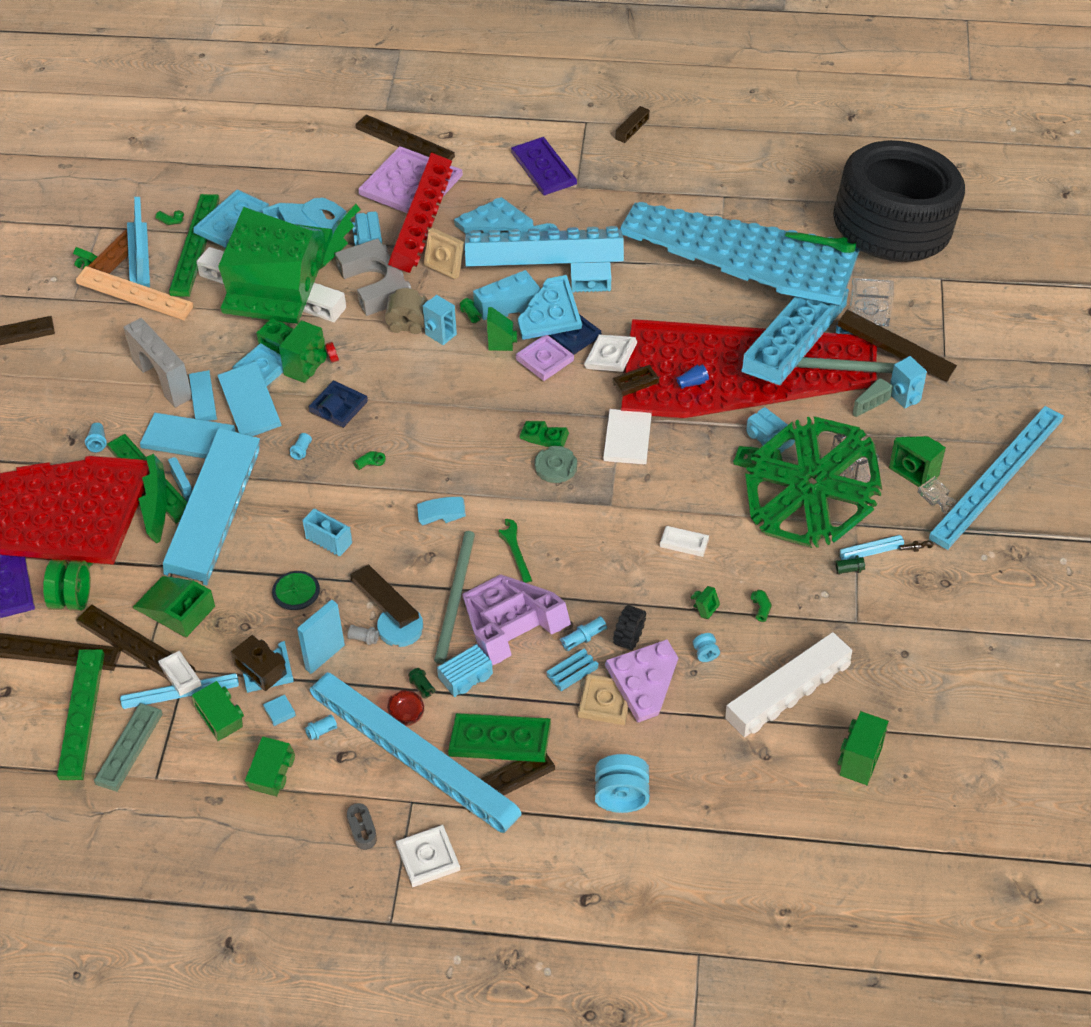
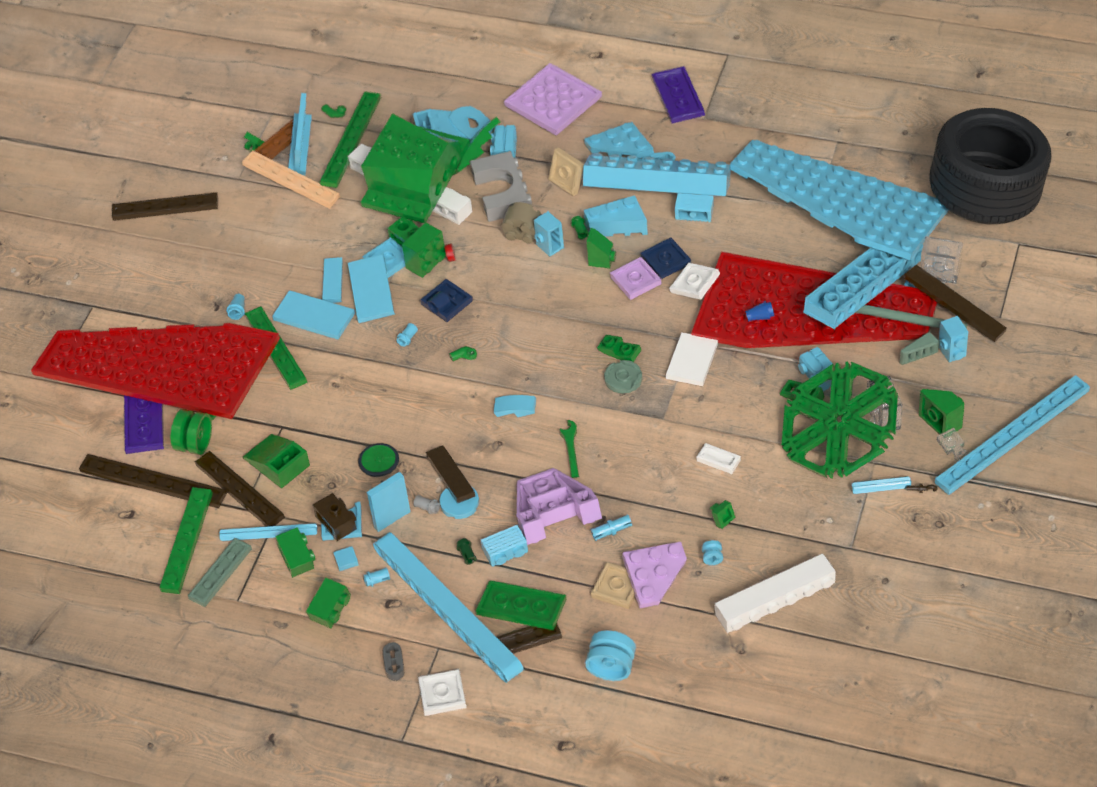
camera: 15 degrees right, 0 degrees up
(151, 351) = (294, 237): light grey arch -> none
(155, 501) = (274, 370): green slope -> none
(179, 673) = (270, 517): white tile -> none
(180, 478) = (300, 352): medium azure tile -> none
(212, 506) = (322, 378): medium azure tile -> none
(222, 220) = (374, 120): medium azure tile -> none
(327, 532) = (413, 413): medium azure brick -> none
(401, 138) = (557, 56): dark brown tile -> none
(406, 707) = (448, 570): clear red hair -> none
(420, 213) = (552, 131): red brick -> none
(454, 597) = (510, 482): sand green piece -> none
(550, 310) = (647, 236): medium azure plate -> none
(571, 666) = (593, 554): medium azure tile -> none
(629, 627) = (649, 527): black tyre -> none
(632, 124) = (769, 61): dark brown piece -> none
(636, 382) = (710, 310): dark brown tile -> none
(764, 604) = (773, 522): green arm -> none
(837, 243) = (927, 200): green piece -> none
(850, 565) = (857, 497): dark green pin -> none
(862, 747) = (821, 654): green brick -> none

